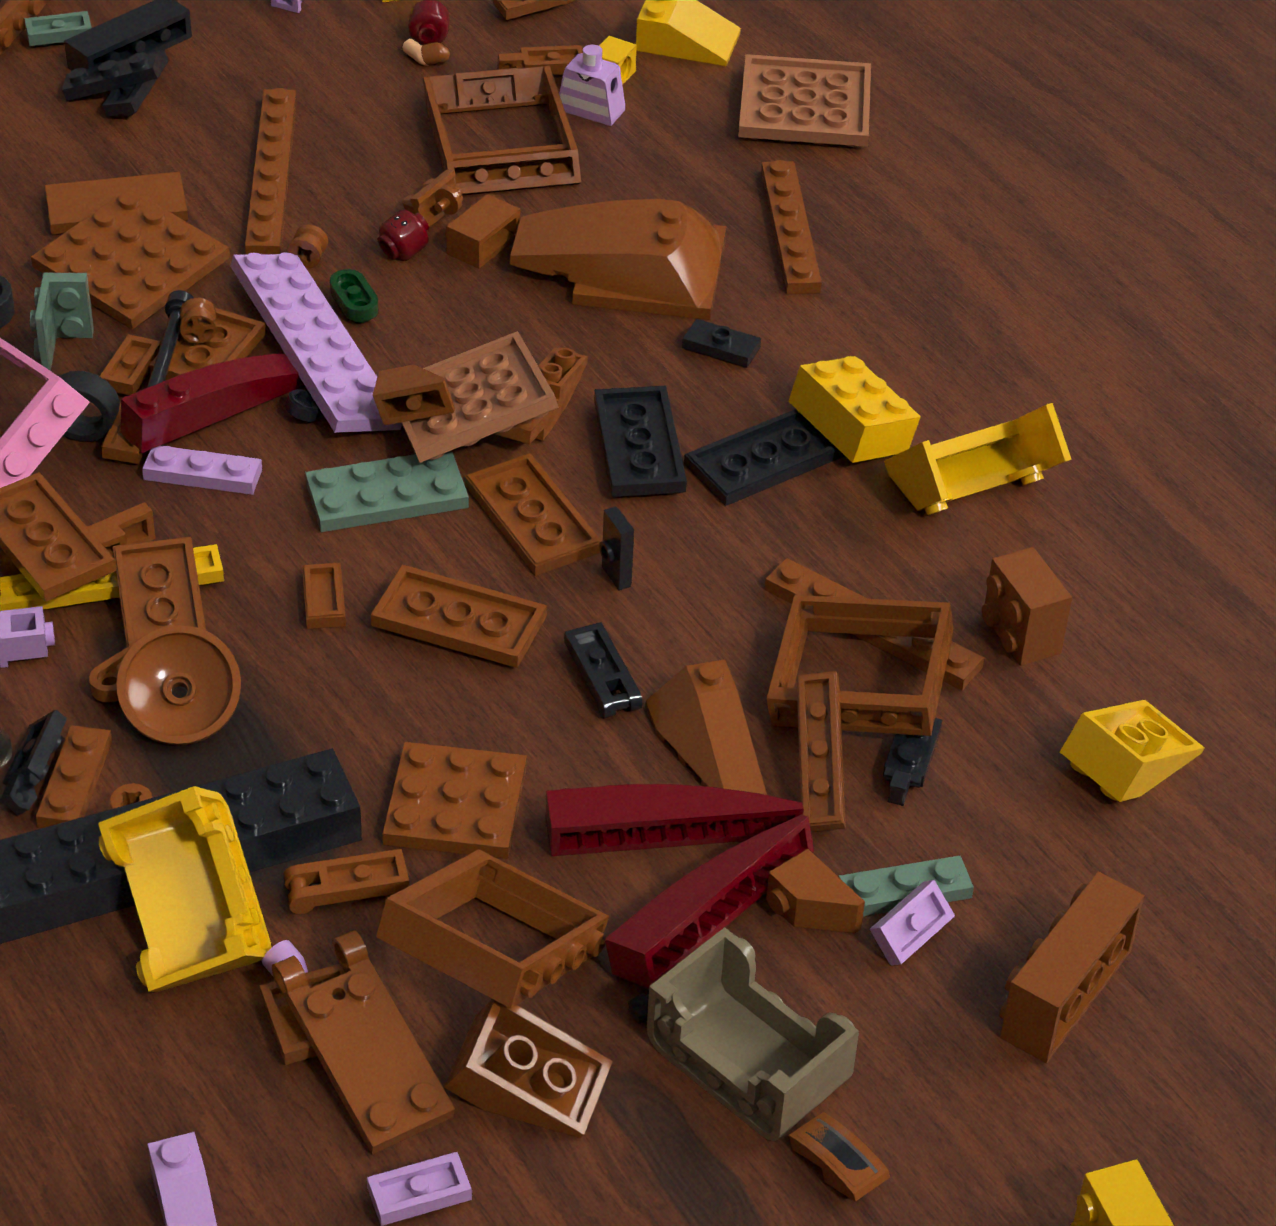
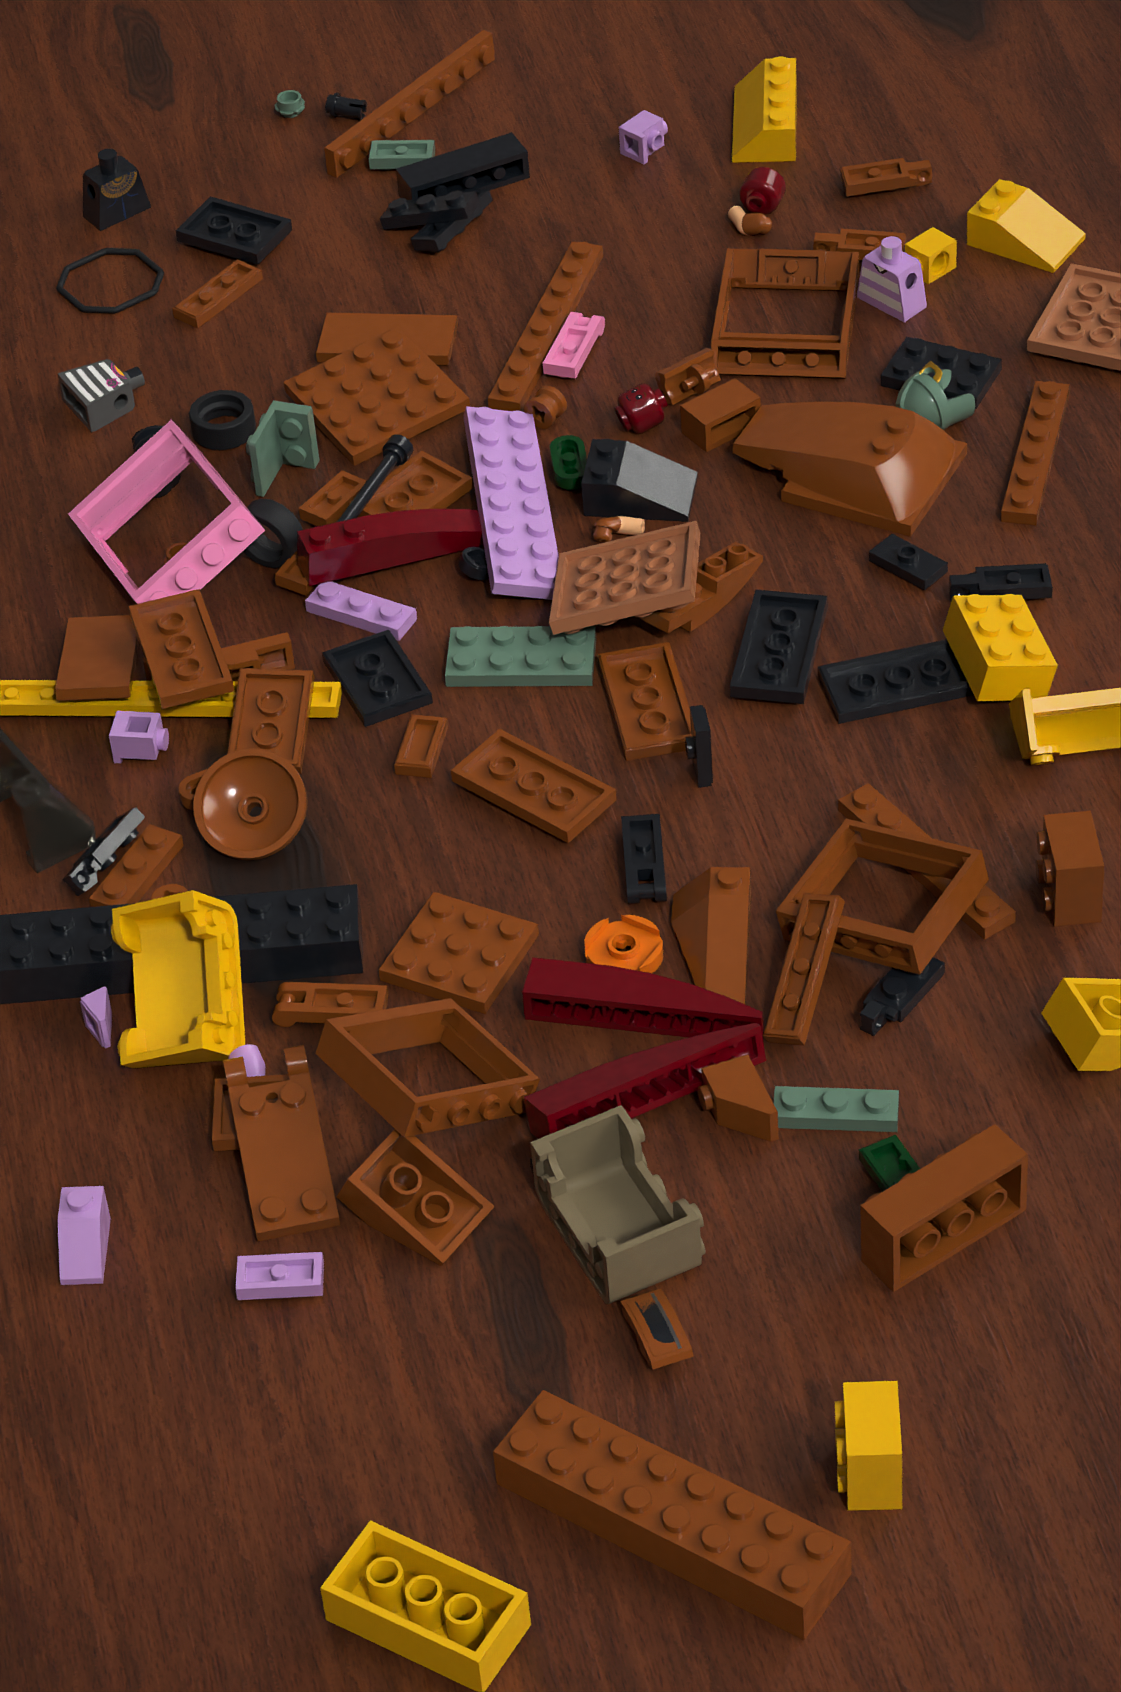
camera: 25 degrees right, 0 degrees up
(99, 943) = (98, 1015): none -> lavender slope
(191, 327) = (404, 466): dark orange wheel -> none
(248, 534) = (377, 678): none -> black tile
(308, 185) = (573, 345): none -> bright pink plate
(411, 395) = (563, 568): dark orange slope -> none
(419, 351) = (619, 524): none -> arm
(429, 306) = (635, 483): none -> black slope
(630, 745) = (632, 931): none -> orange plate
(669, 166) = (969, 370): none -> black plate
(683, 184) = (927, 397): none -> sand green helmet
(820, 347) = (1027, 580): none -> black hinge
(912, 922) = (821, 1140): lavender plate -> none
(993, 938) = (887, 1161): none -> dark green plate

